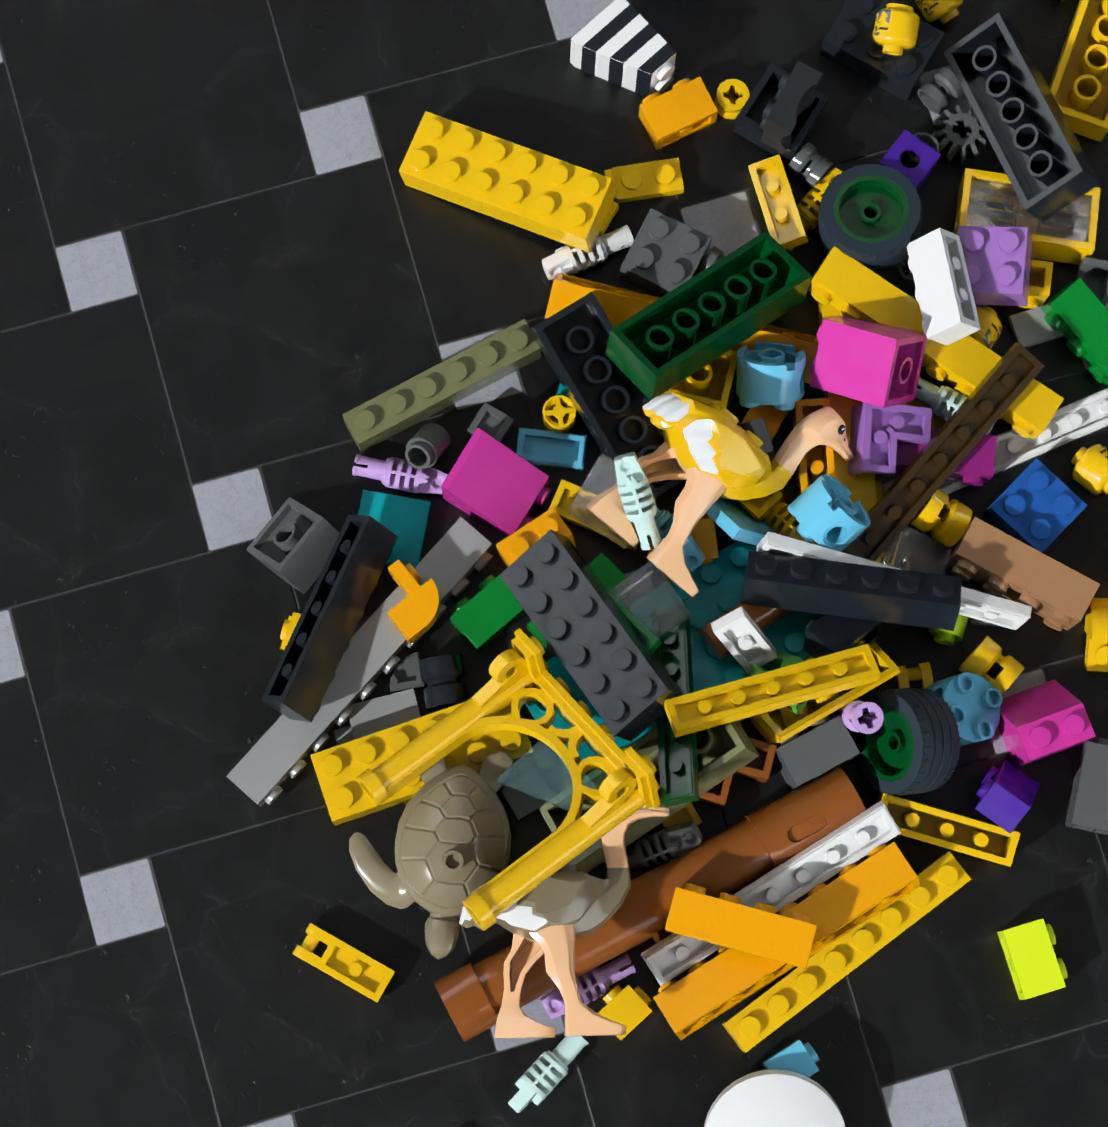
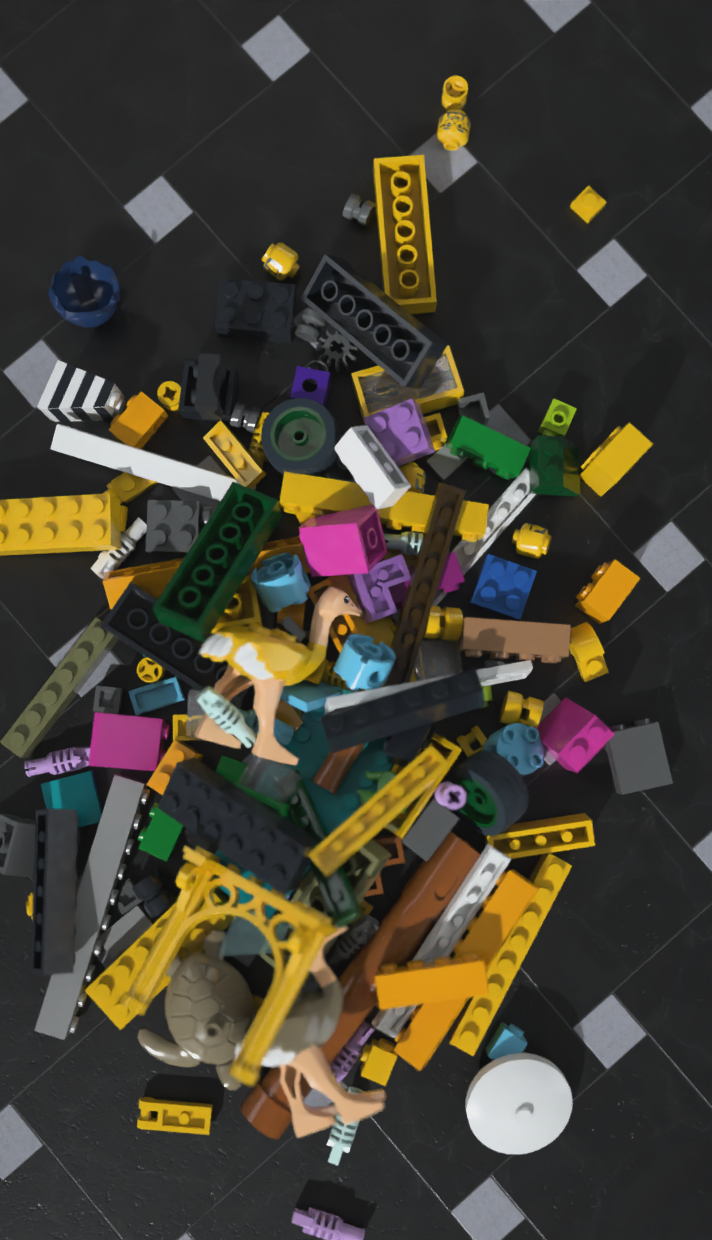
camera: 20 degrees left, 5 degrees up
(421, 606) = (113, 853): light orange brick -> none
(427, 446) = (70, 735): dark grey brick -> none
(661, 161) = (141, 462): none -> white tile
(744, 639) = (344, 778): white plate -> none
(896, 28) = (259, 297): yellow head -> none
(1006, 795) = (570, 797): dark purple brick -> none
(1033, 959) = (635, 896): neon yellow brick -> none

